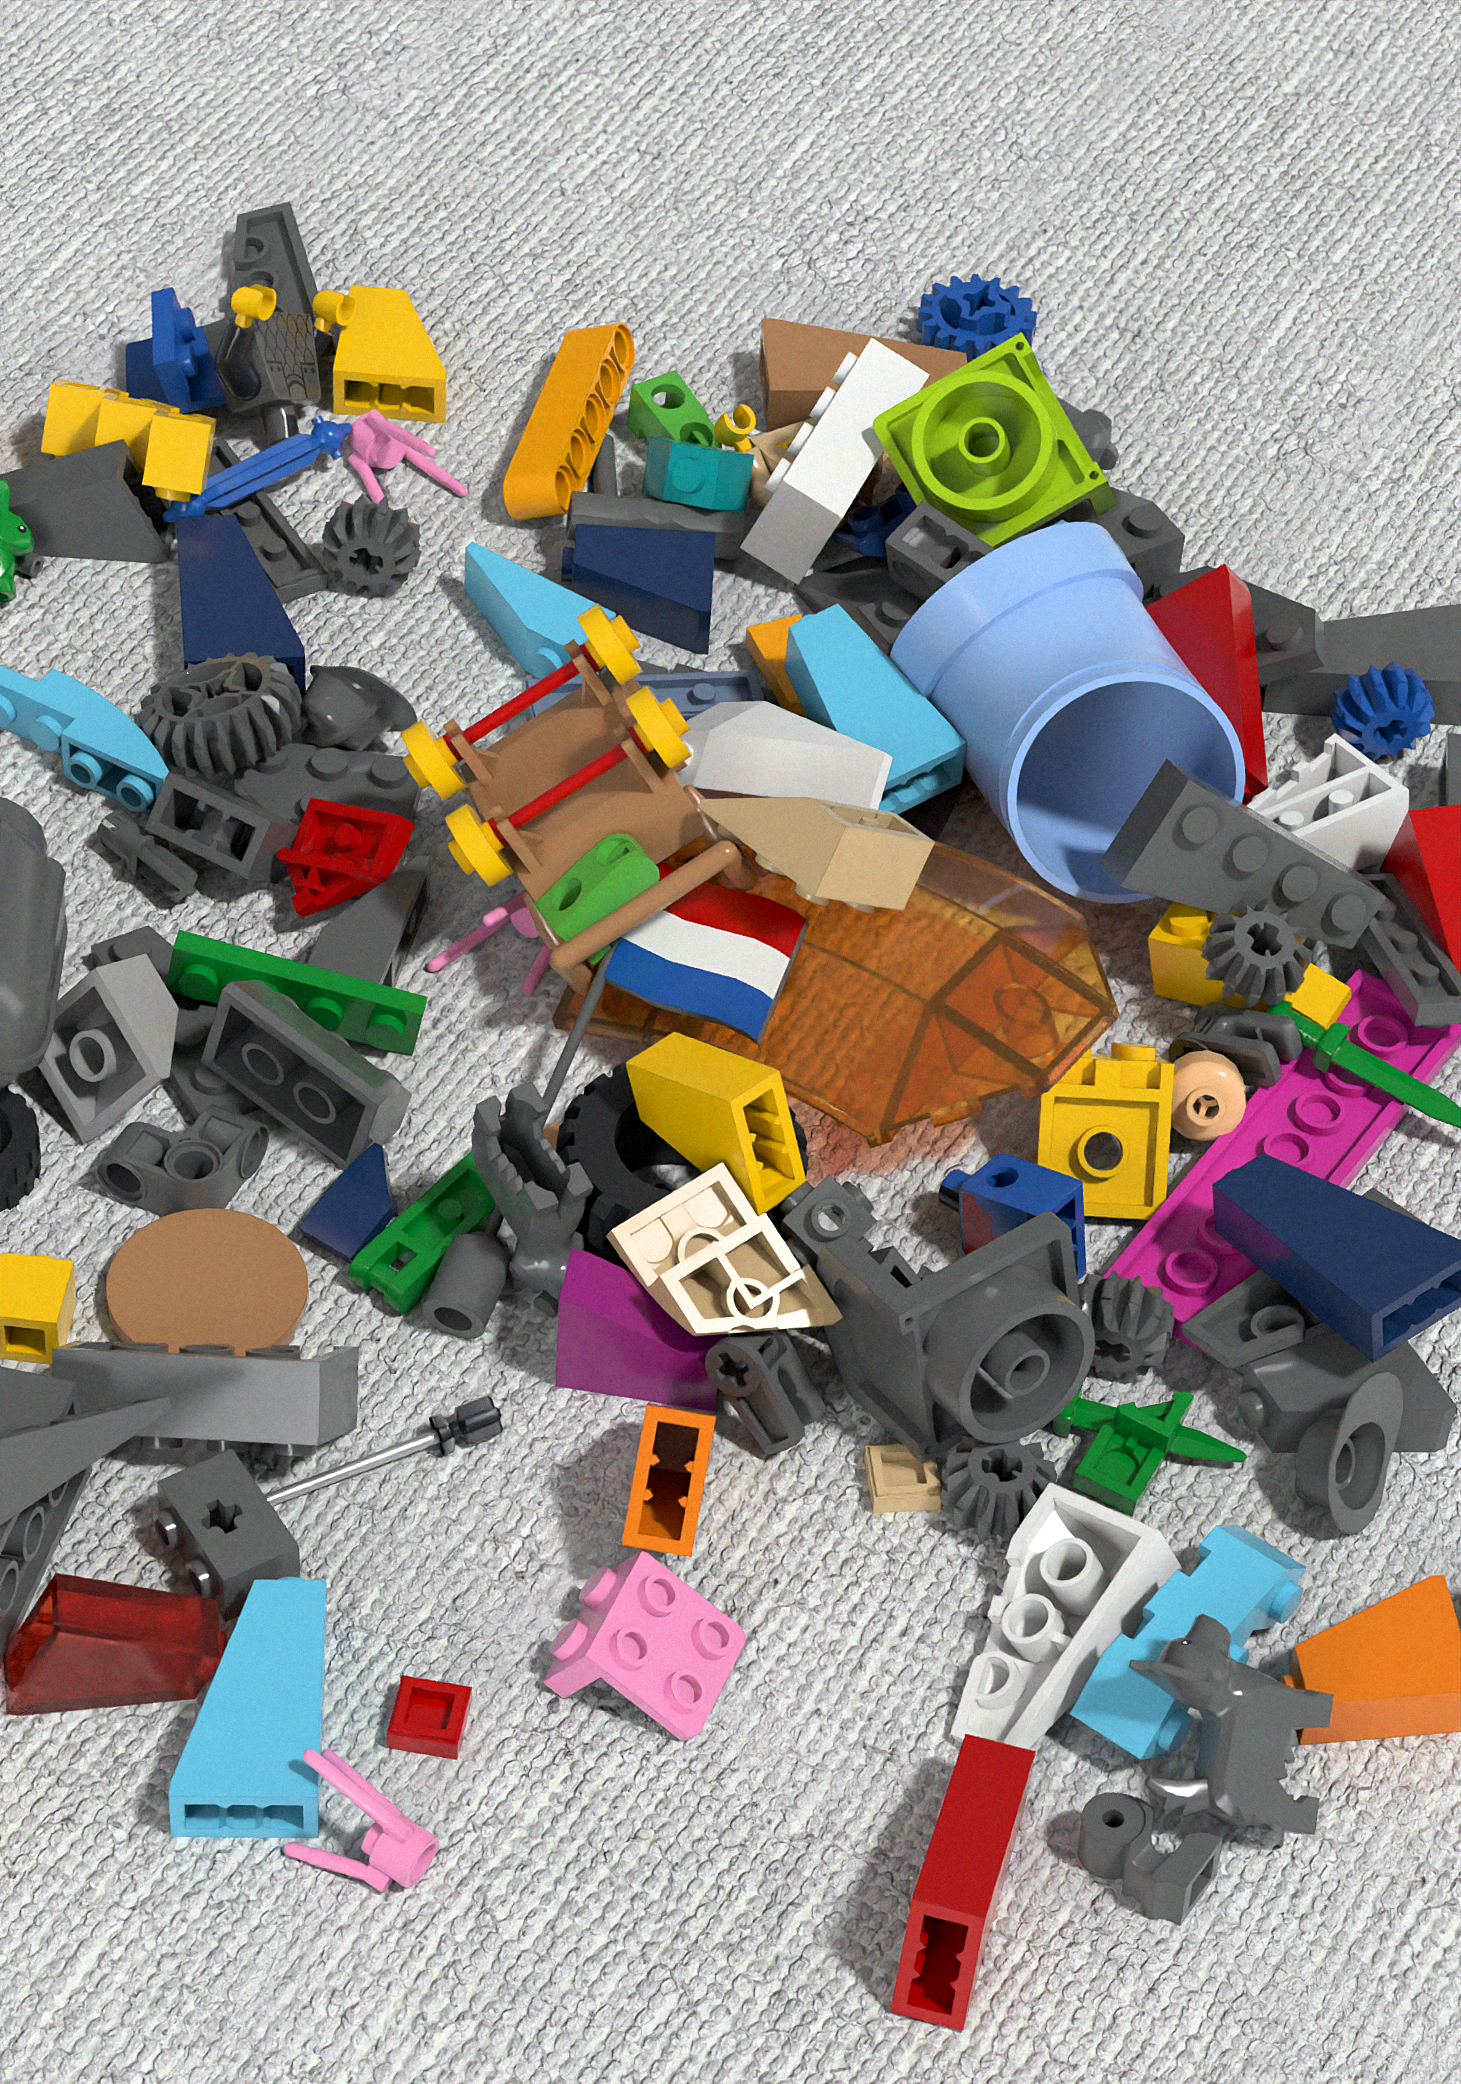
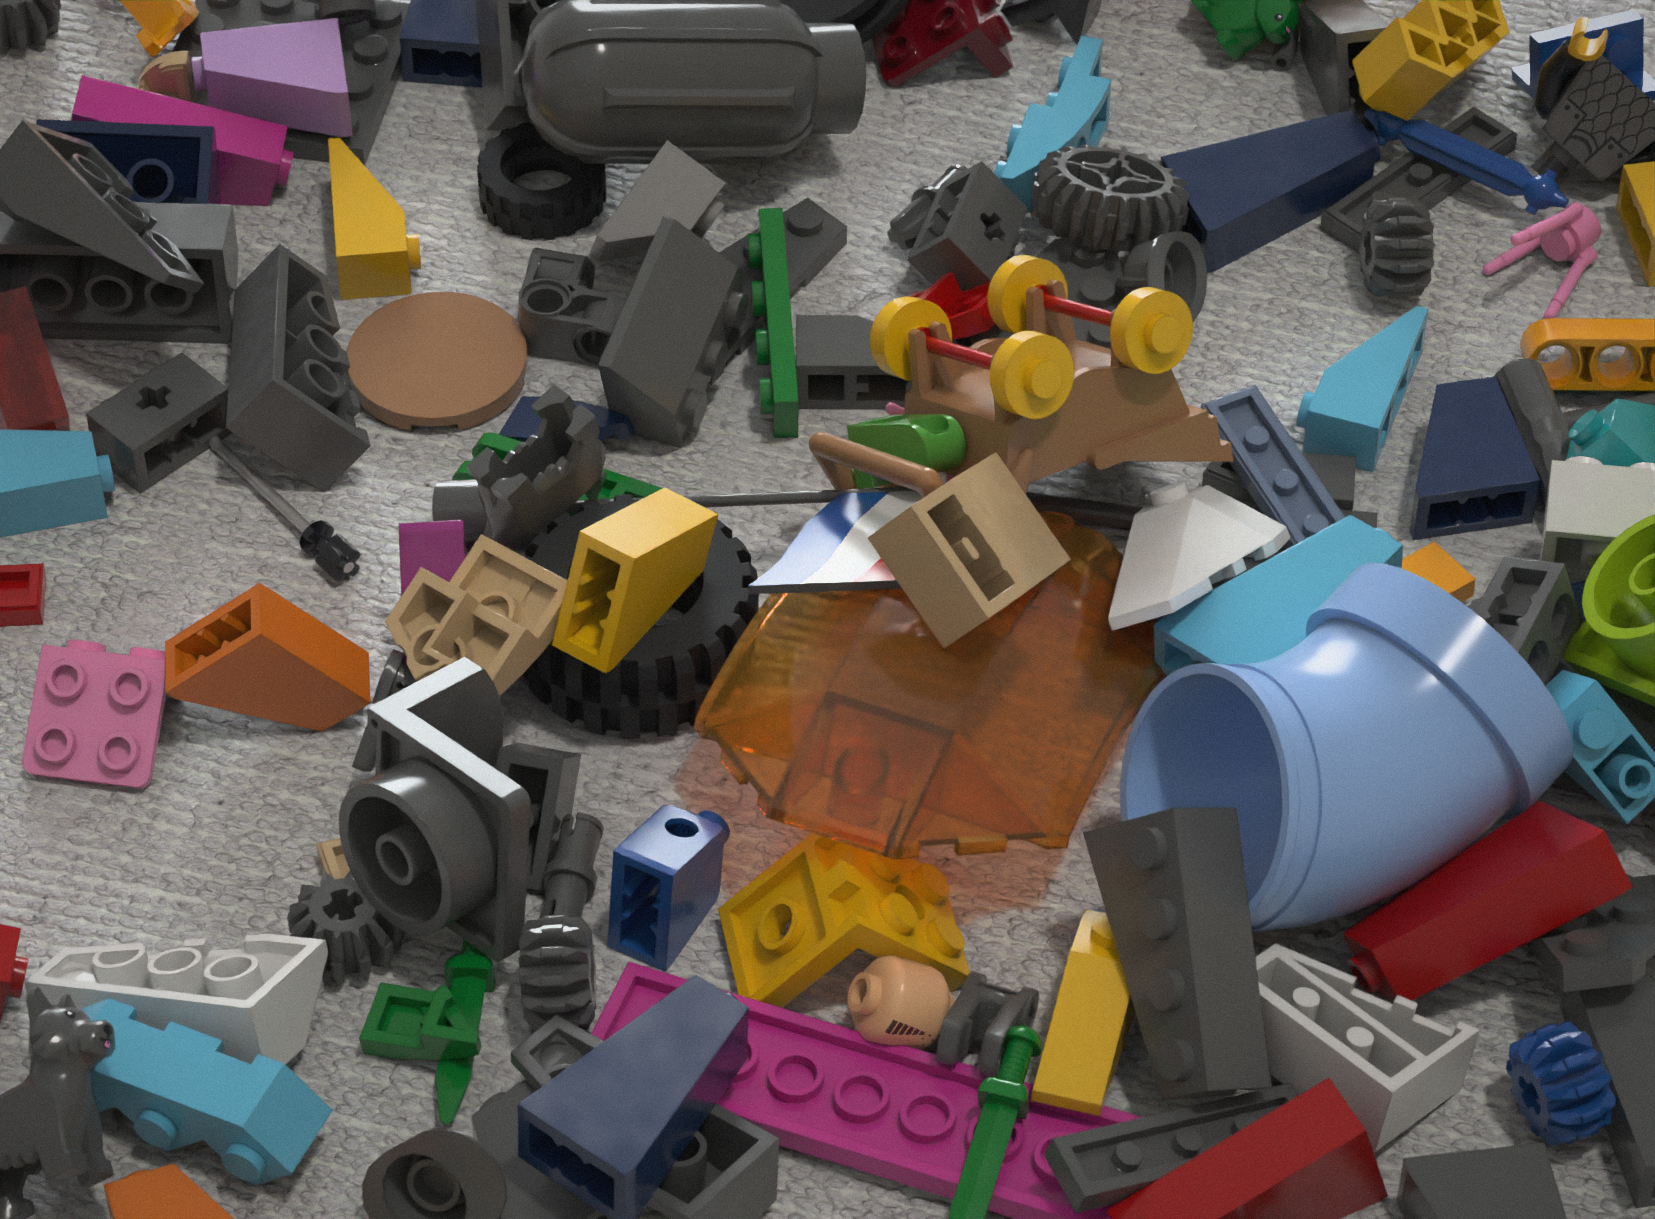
camera: 80 degrees right, 0 degrees up
(841, 1203) = (566, 705): dark grey brick -> none
(1256, 954) = (1062, 980): dark grey gear -> none

